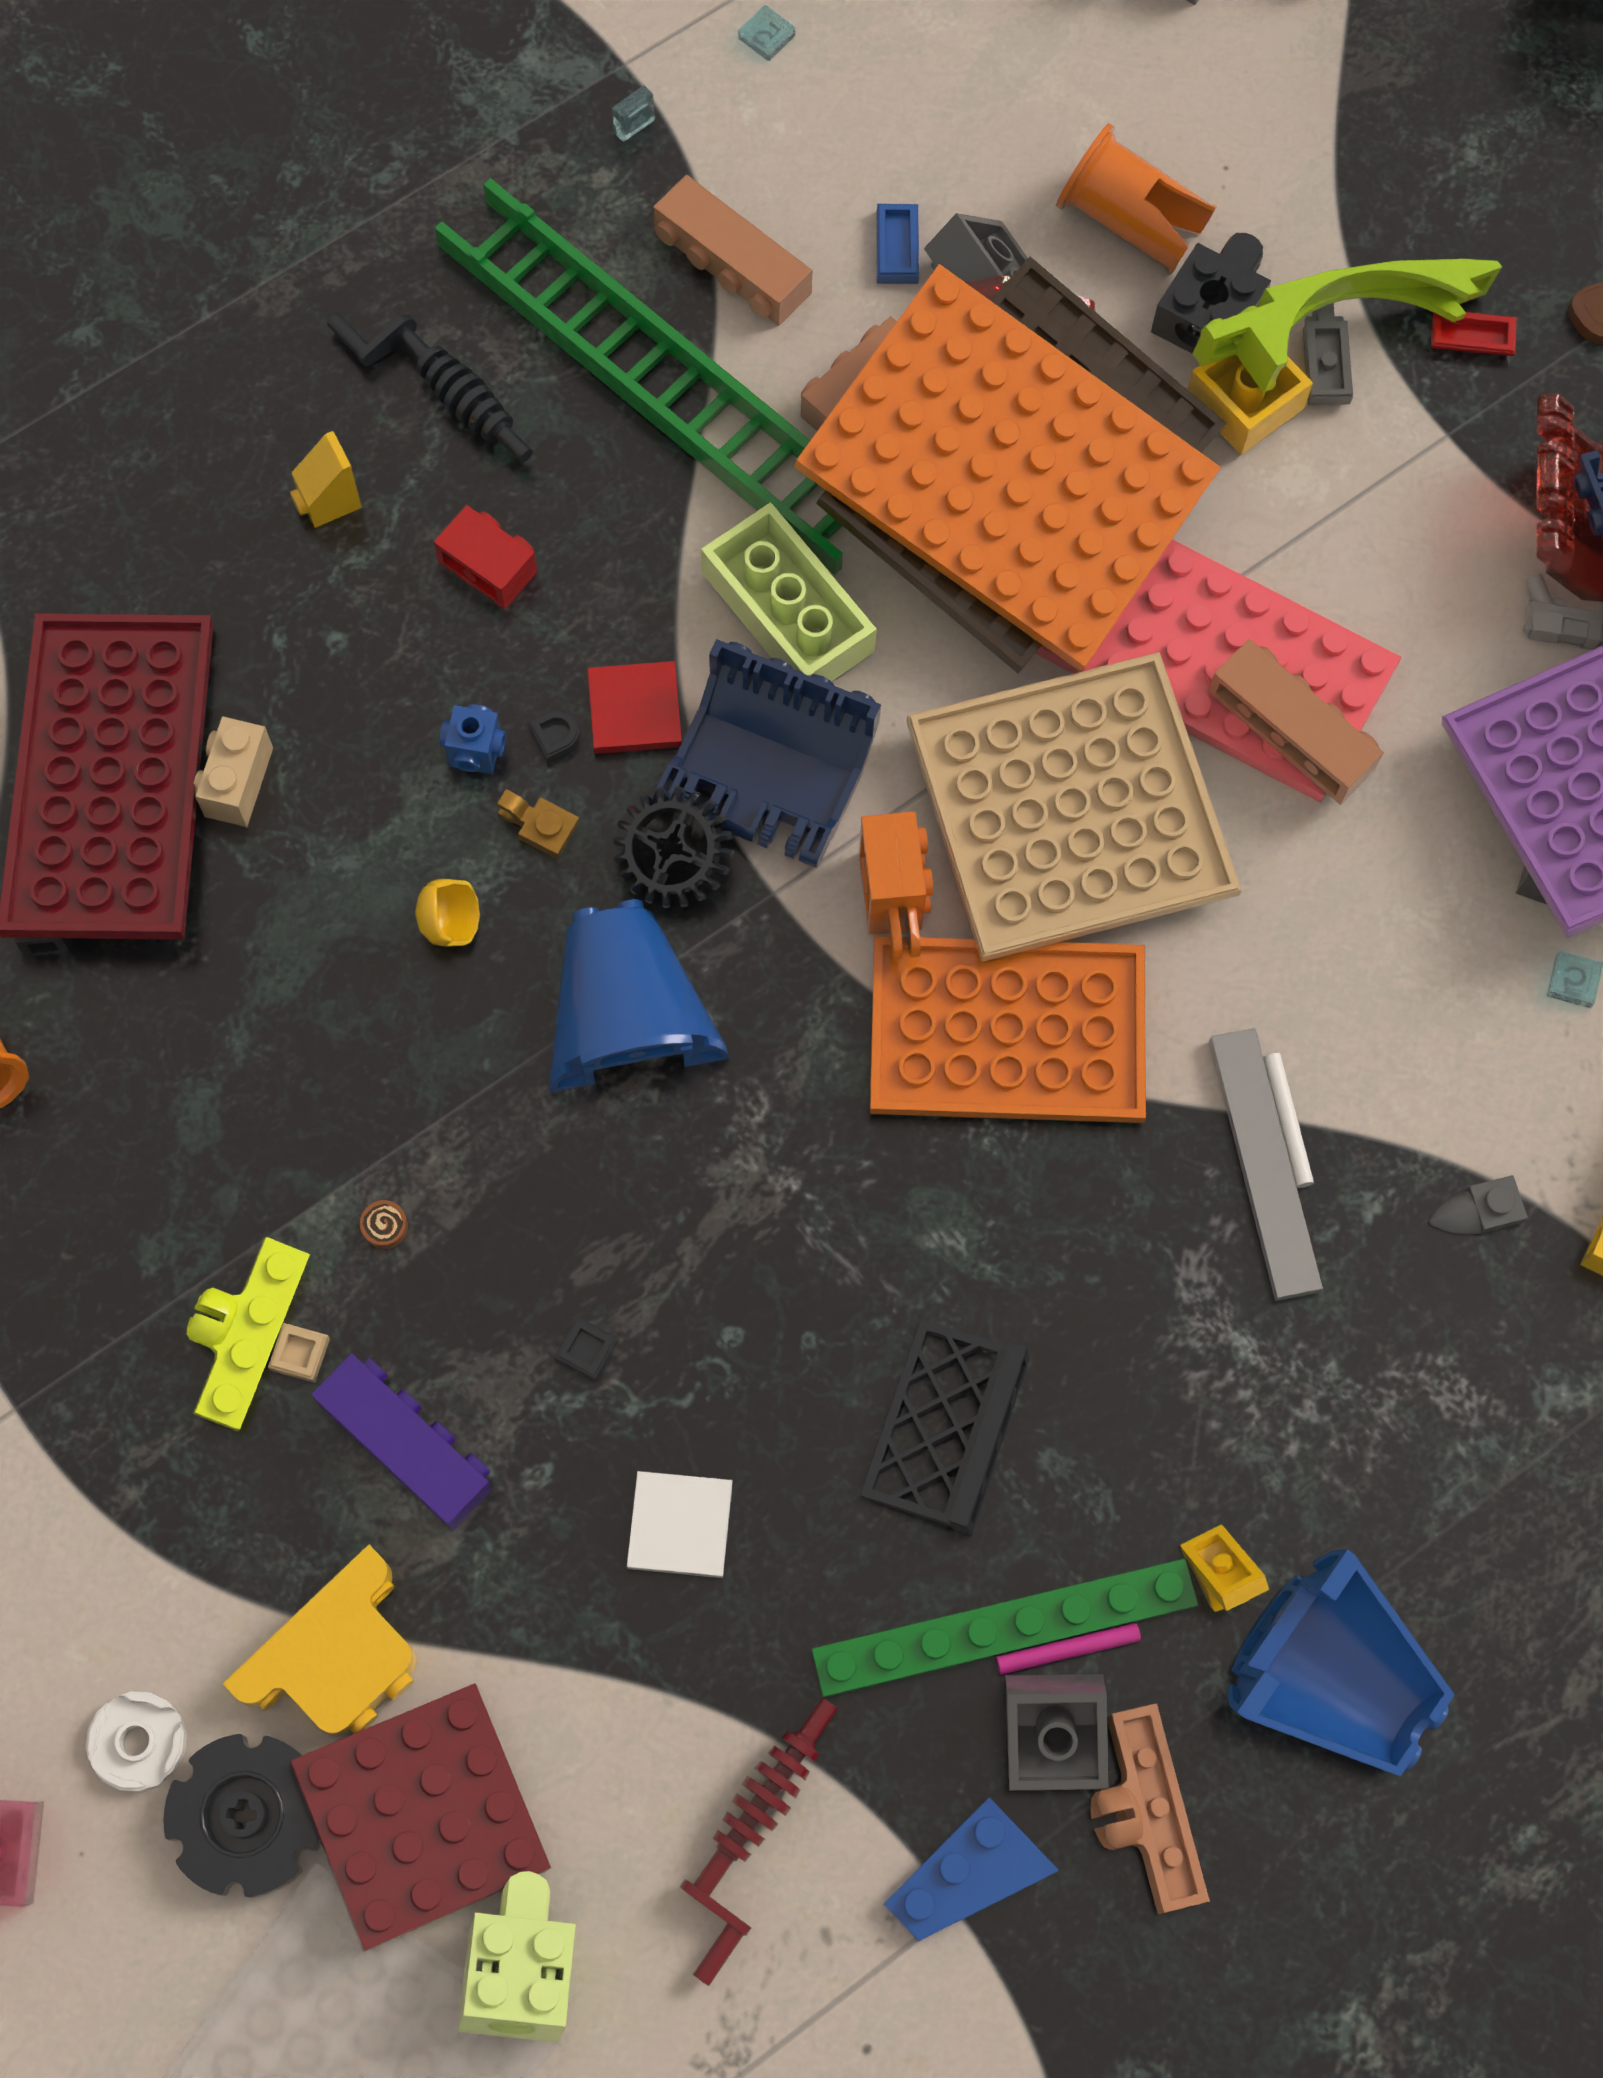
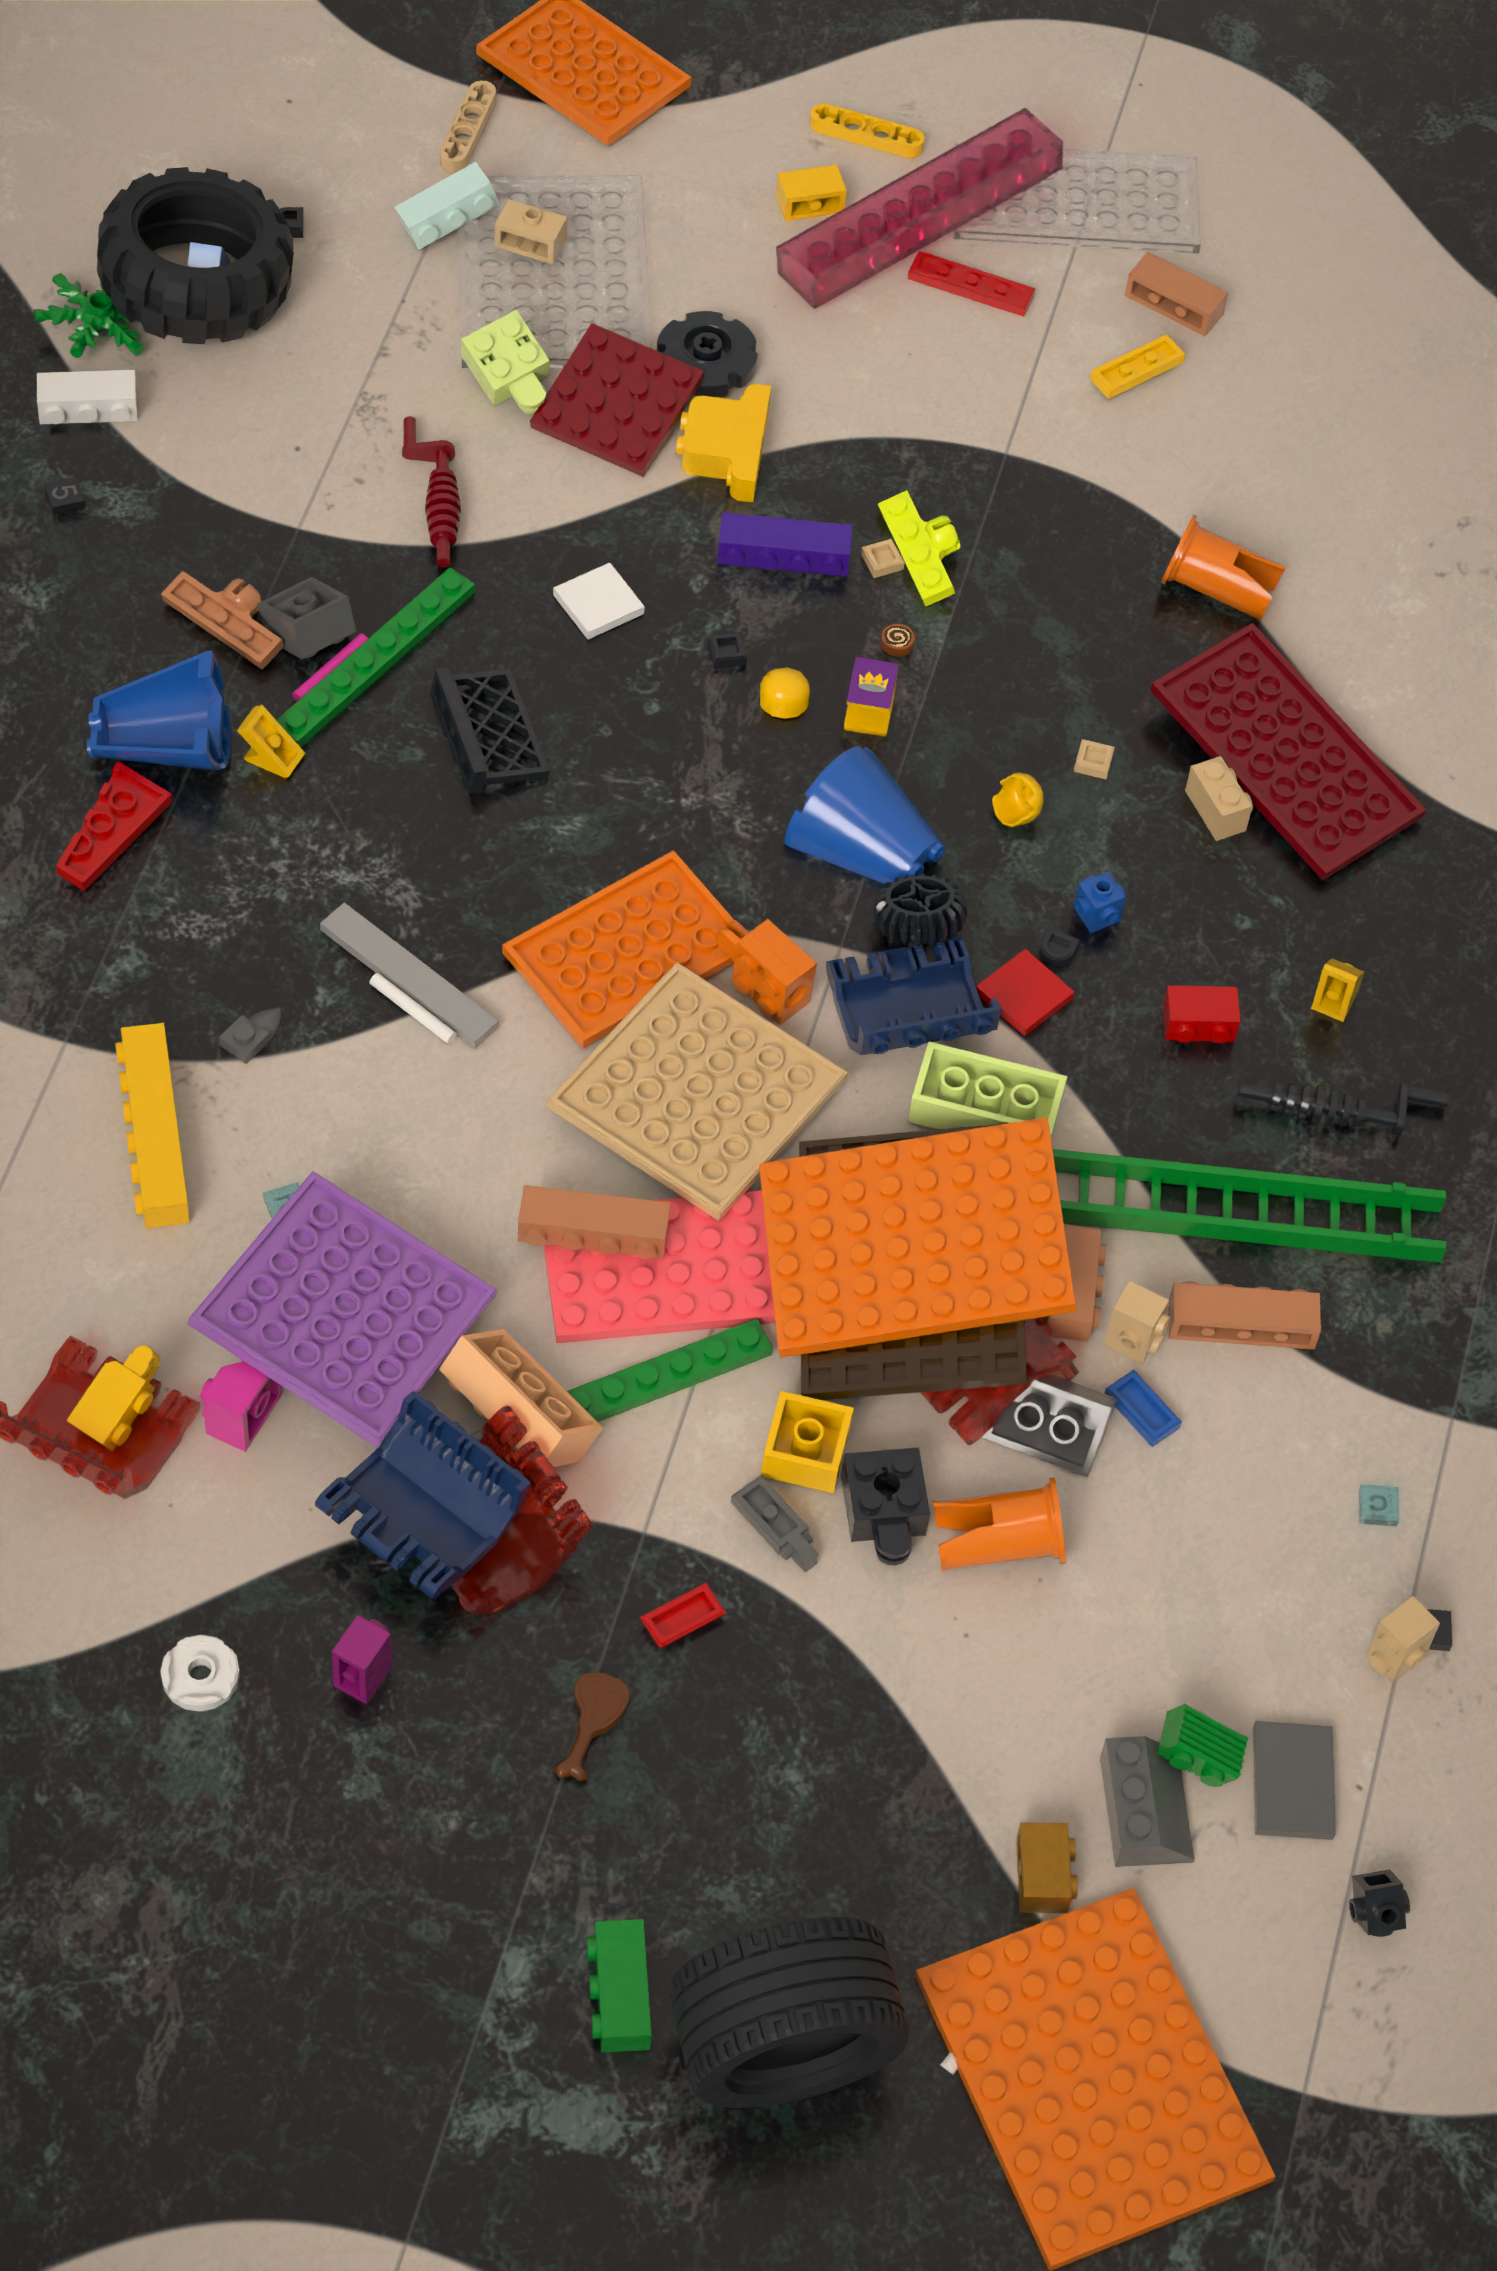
camera: 140 degrees right, 15 degrees down
(161, 1756) = (793, 371): white tile -> none
(309, 924) = (1094, 759): none -> tan tile
(489, 1153) = (871, 696): none -> piece
(543, 826) = (1013, 892): pearl gold plate -> none
(572, 1241) = (784, 693): none -> yellow hair
(633, 113) = (1403, 1368): clear light blue tile -> none
(849, 289) = (1137, 1323): none -> tan brick
(969, 1872) = (303, 543): blue wing -> none
(1262, 332) = (822, 1443): lime slope -> none
(1323, 559) = (673, 1371): none -> green plate
(1472, 1589) = (117, 819): none -> red wing
(1498, 592) = (500, 1373): none -> light nougat brick

